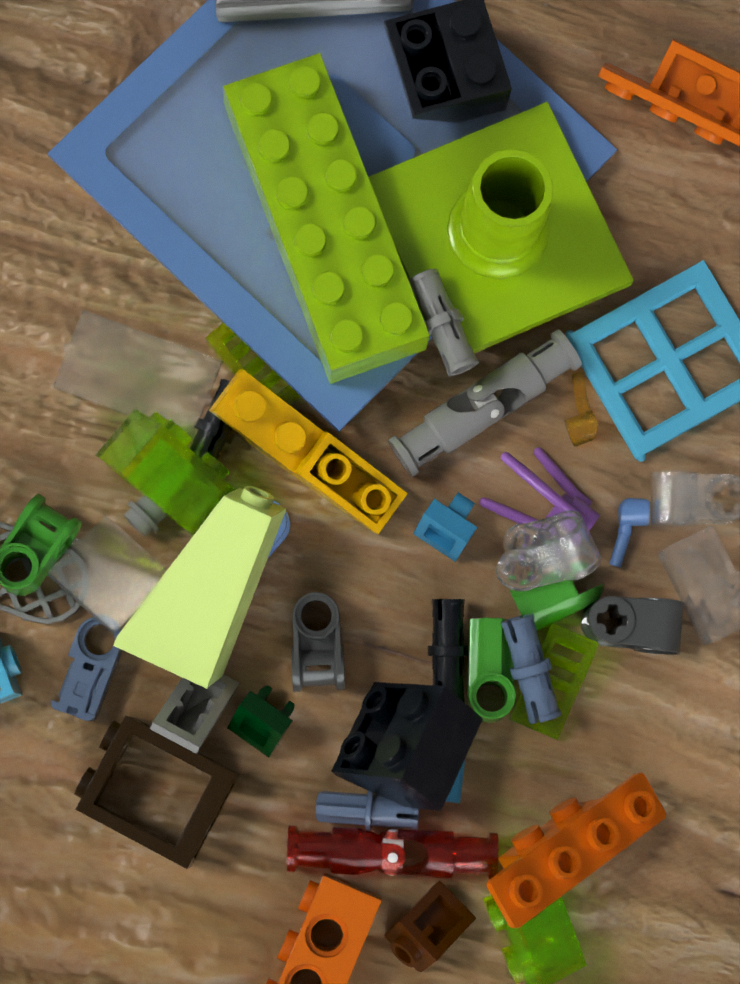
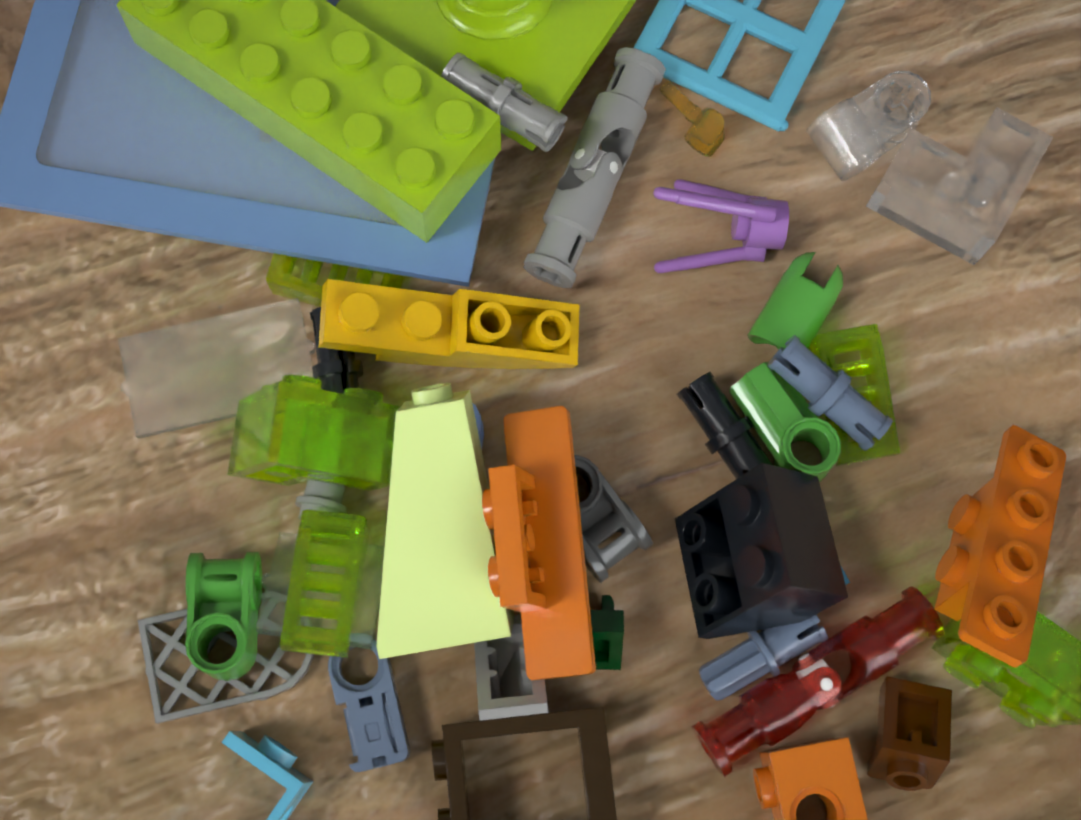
camera: 35 degrees left, 5 degrees down
(141, 541) = (328, 541): none -> clear neon green slope
(265, 639) = (540, 543): none -> orange bracket
(447, 526) = (643, 311): dark azure tile -> none
(553, 548) = (764, 260): clear piece -> none
(630, 513) = (811, 185): medium blue hand -> none
(643, 624) = (900, 283): dark grey piece -> none

